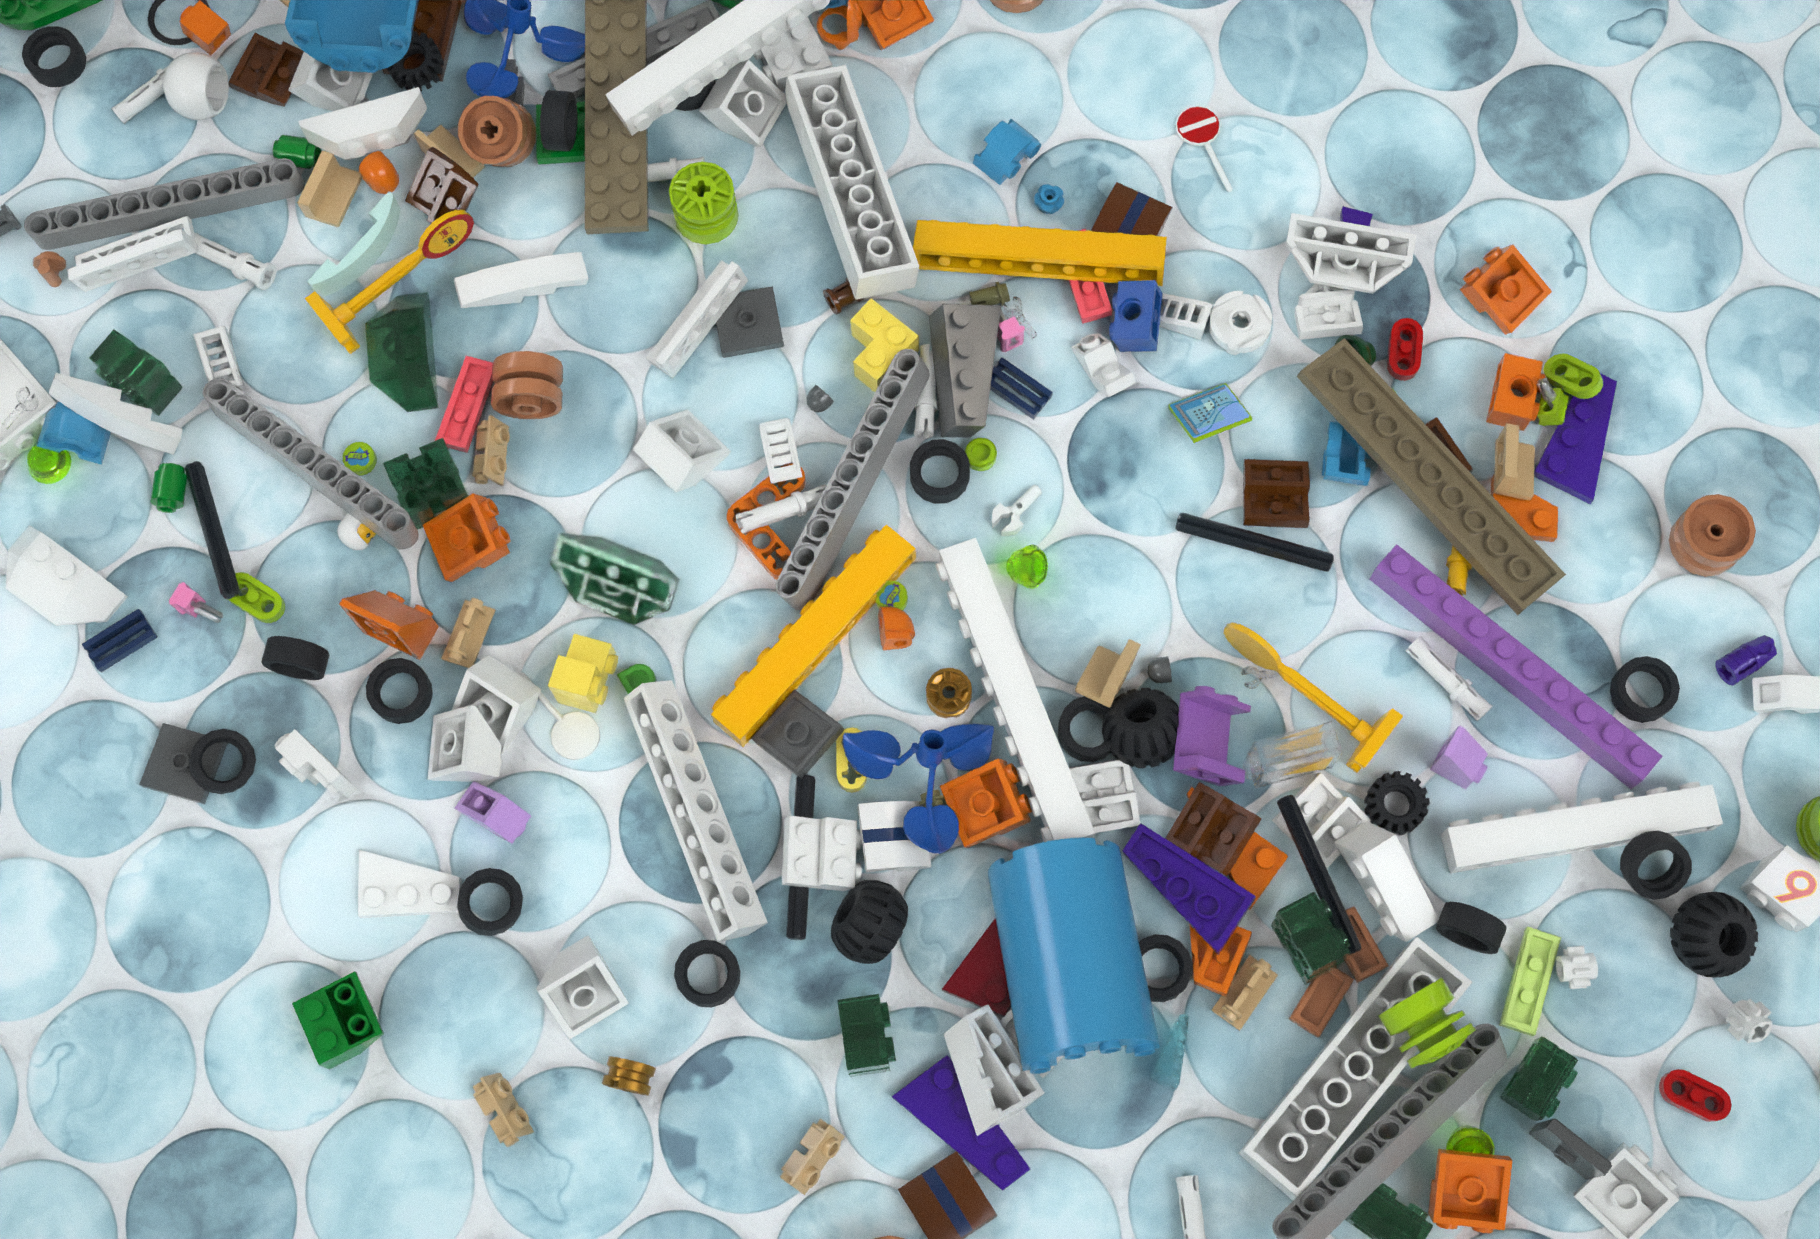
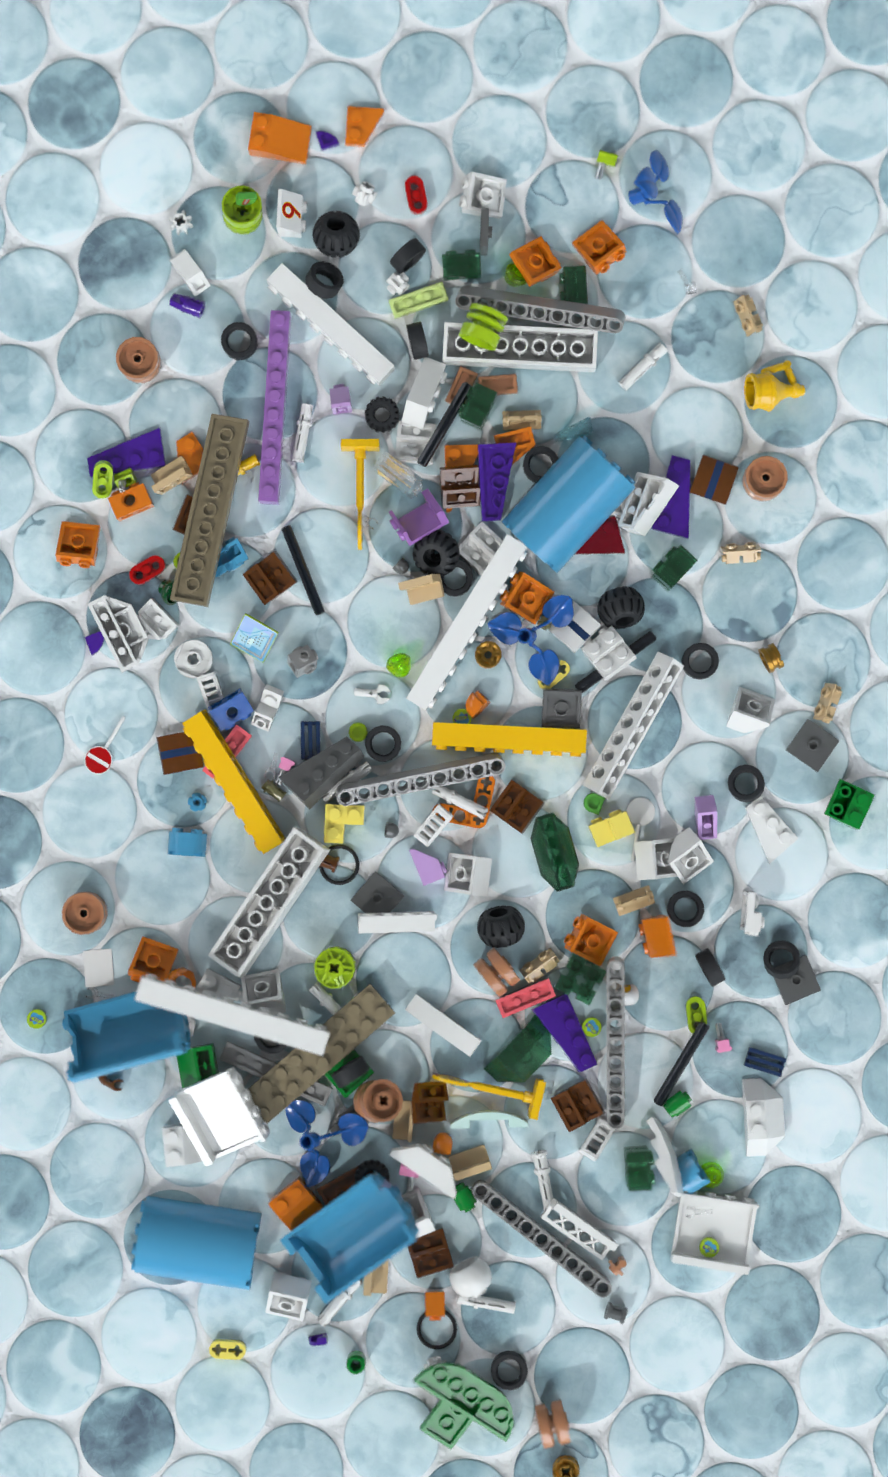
camera: 130 degrees left, 15 degrees up
(281, 368) = (577, 1105): none -> reddish brown slope
(380, 422) = (566, 1030): none -> dark purple wing
(463, 1040) = (812, 745): none -> dark grey plate
(581, 440) = (500, 926): none -> black wheel
(716, 579) = (517, 806): none -> reddish brown slope
(735, 407) = (428, 867): none -> lavender slope
(799, 310) = (355, 871): none -> black tyre
(1130, 448) = (302, 660): none -> light grey brick
(1610, 1009) = (408, 255): none -> black tyre

